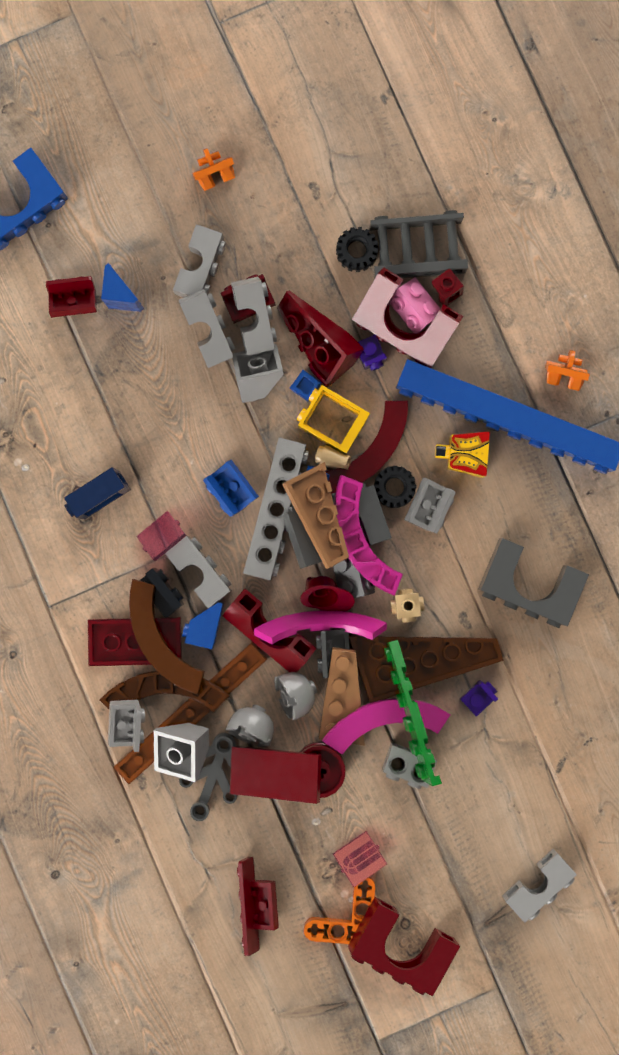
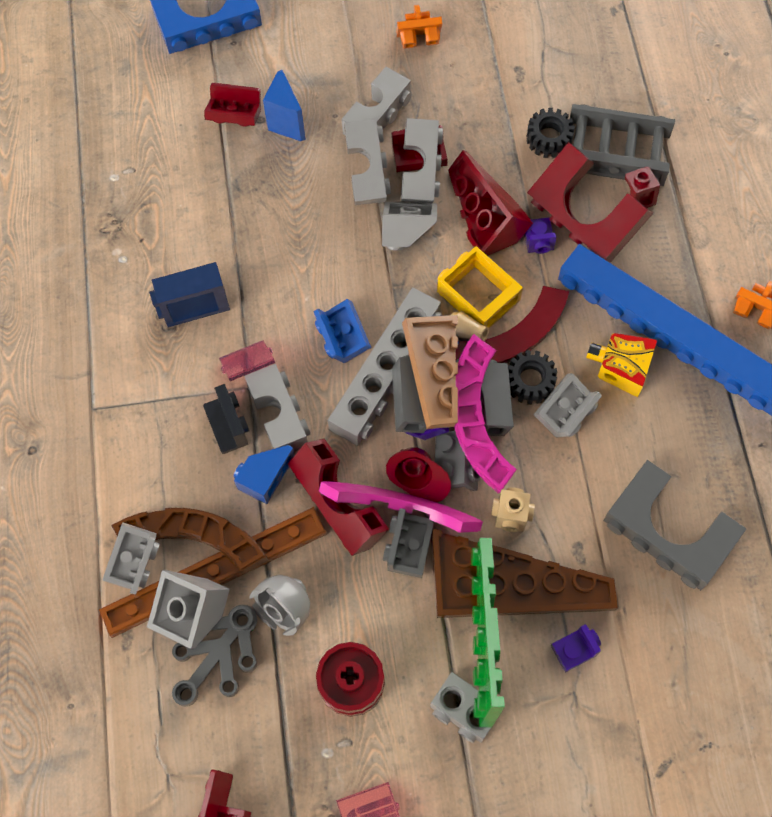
camera: 15 degrees right, 20 degrees down
(114, 642) = (176, 471): dark red tile -> none
(152, 643) = (197, 475): reddish brown tile -> none
(275, 774) = (294, 664): dark red tile -> none
(296, 694) = (348, 577): light grey cylinder -> none
(304, 385) = (454, 248): blue tile -> none
(341, 692) = (402, 606): medium nougat wing -> none
(376, 715) = (443, 630): dark pink tile -> none
(414, 305) = (596, 196): bright pink bracket -> none

